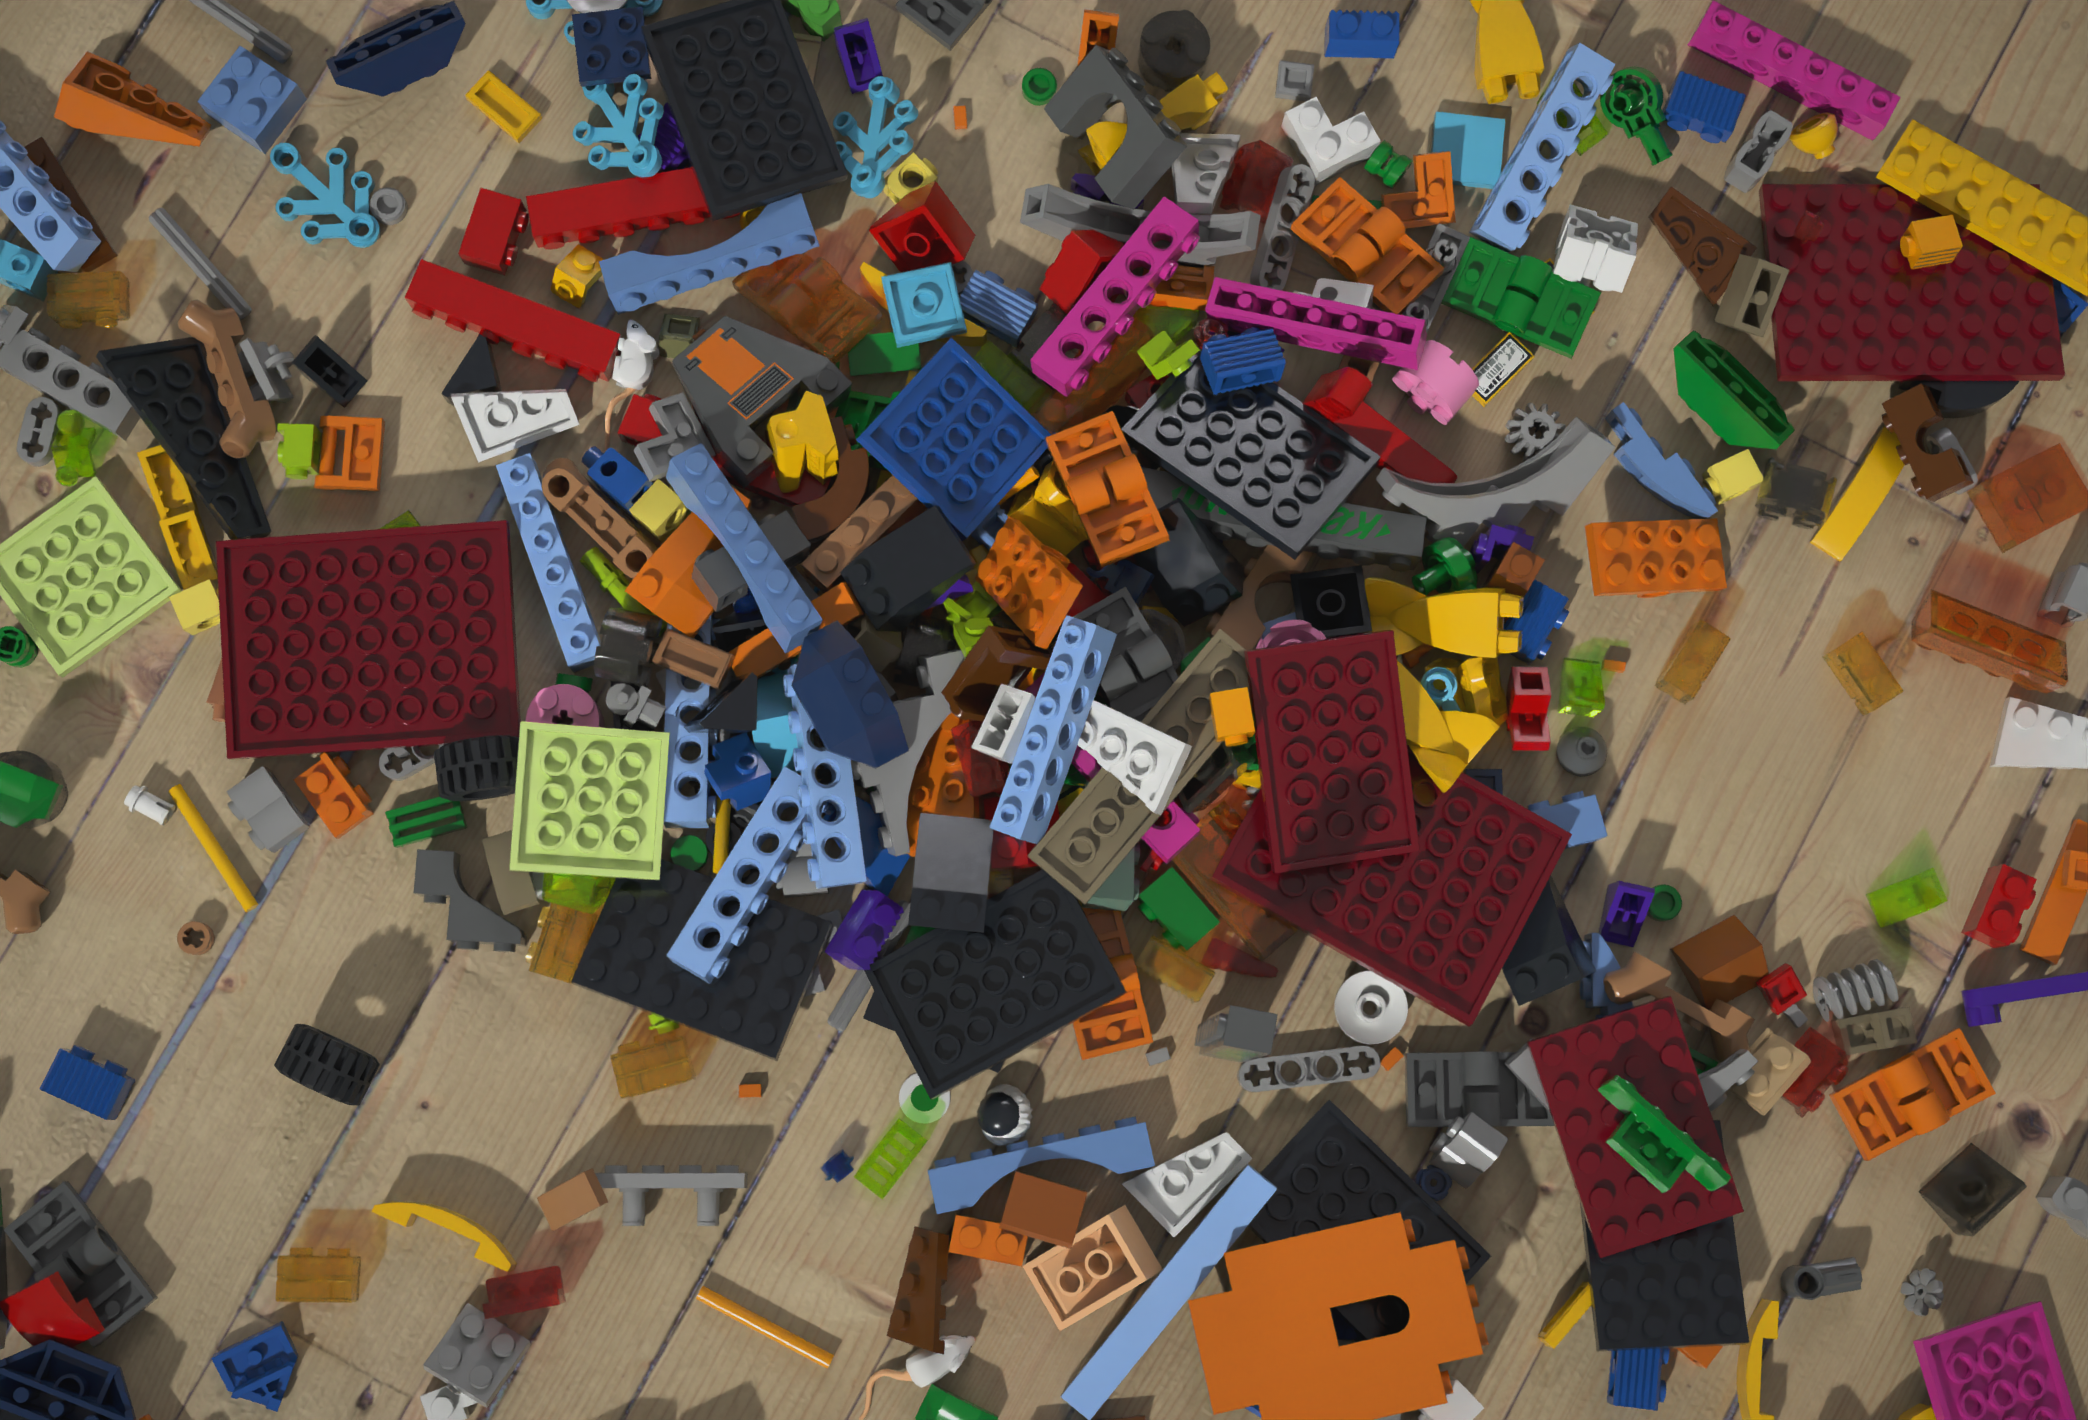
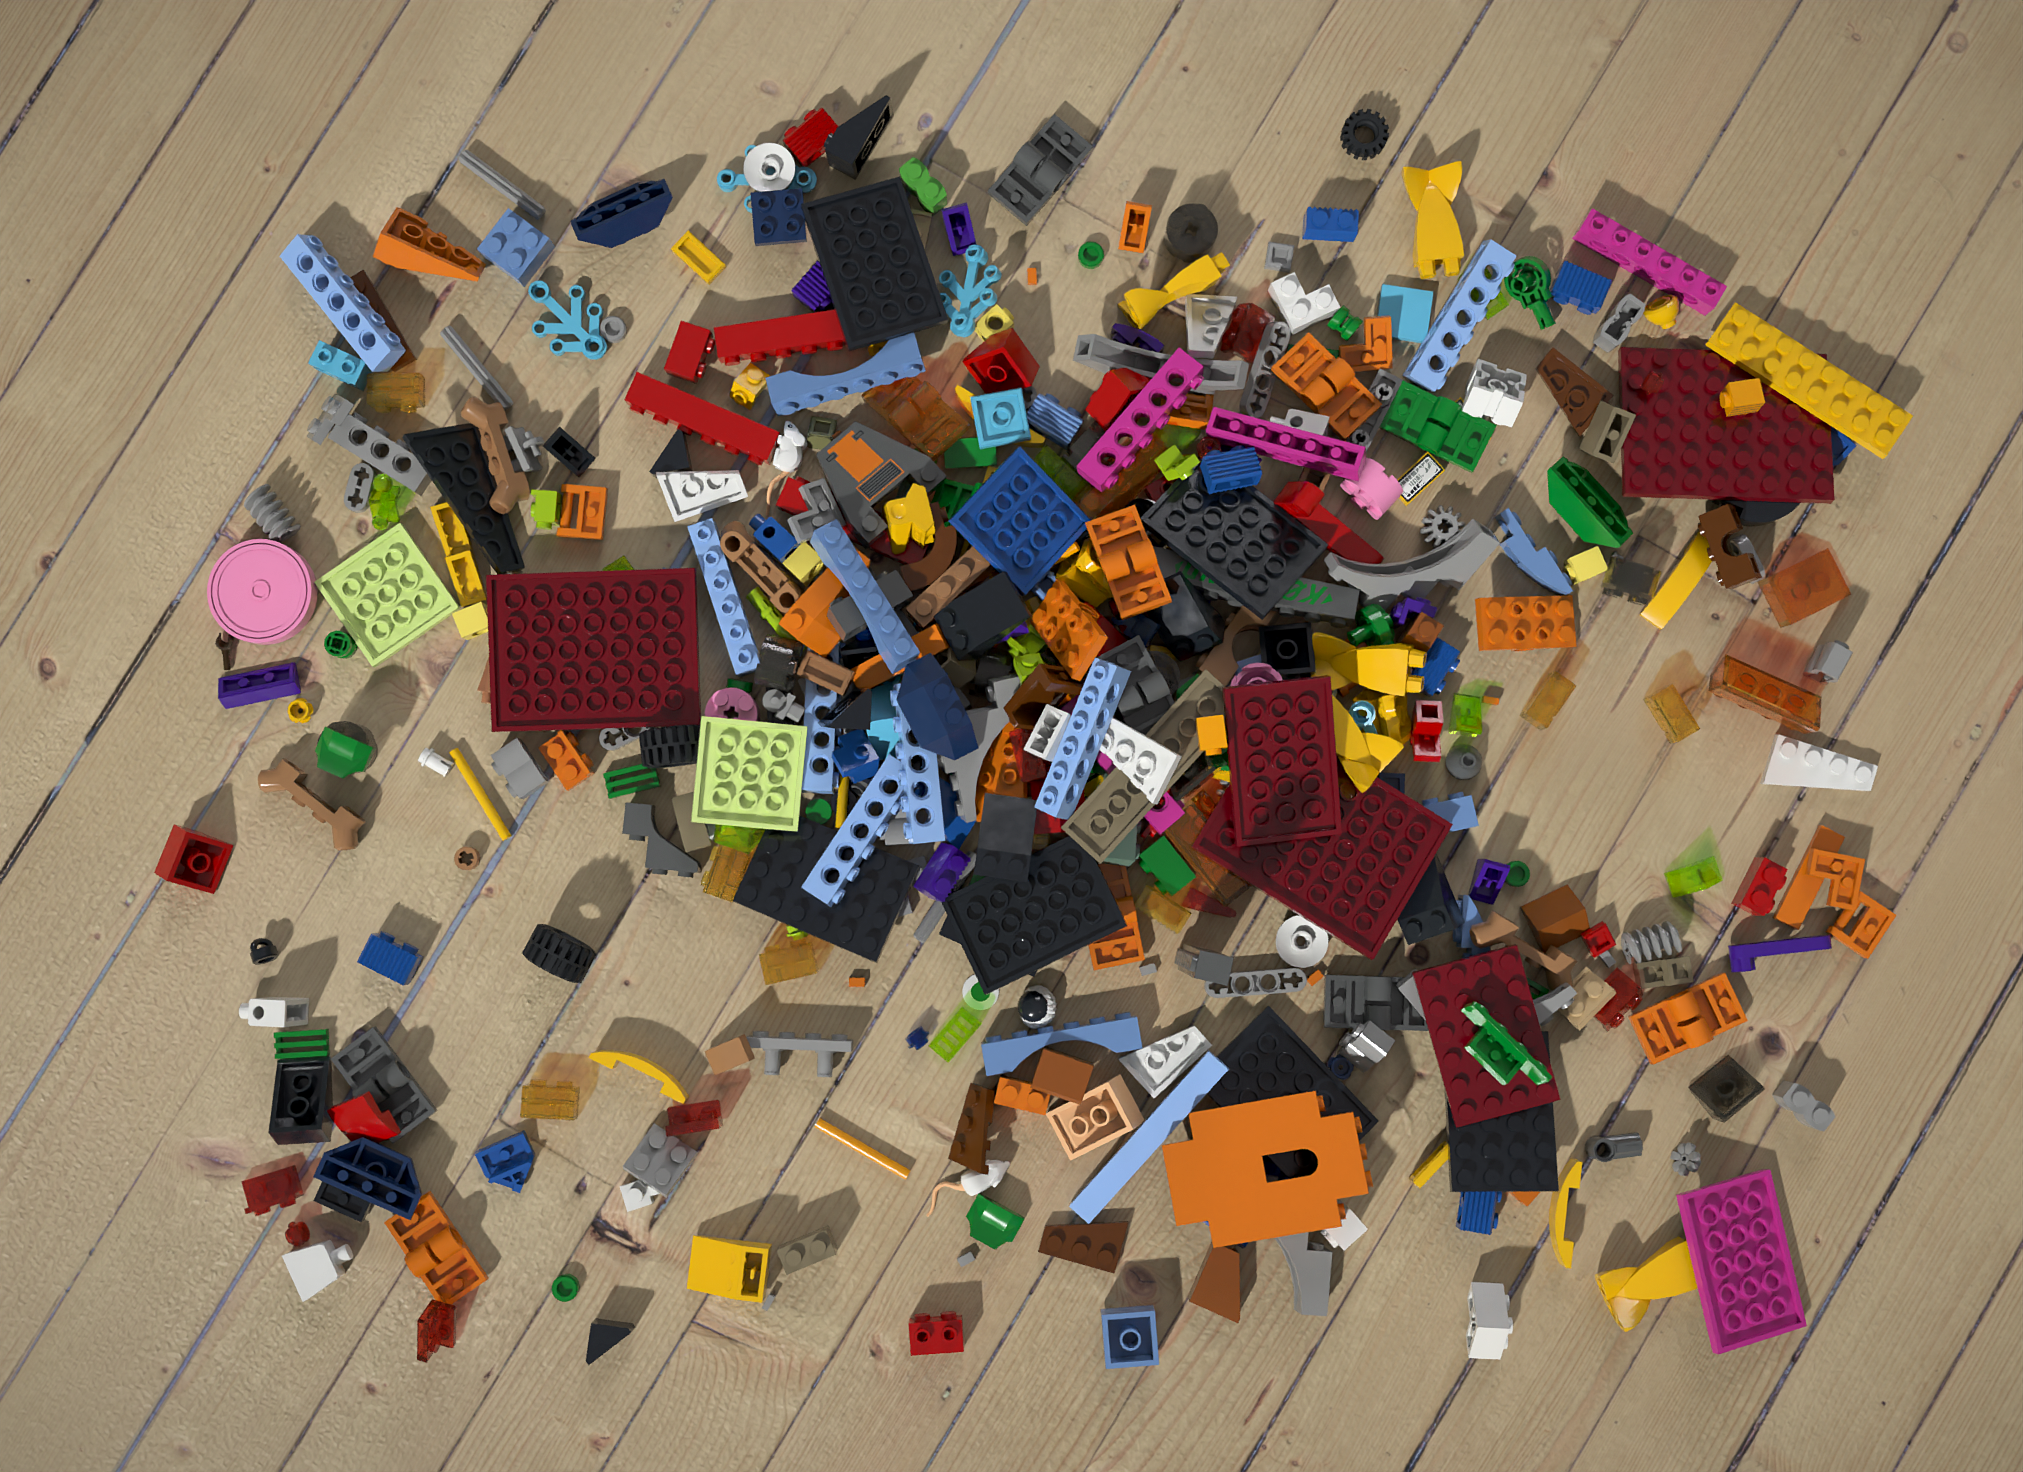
camera: 10 degrees right, 5 degrees up
(643, 156) = (786, 279): medium azure plant -> none
(1150, 139) = (1171, 302): dark grey arch -> none

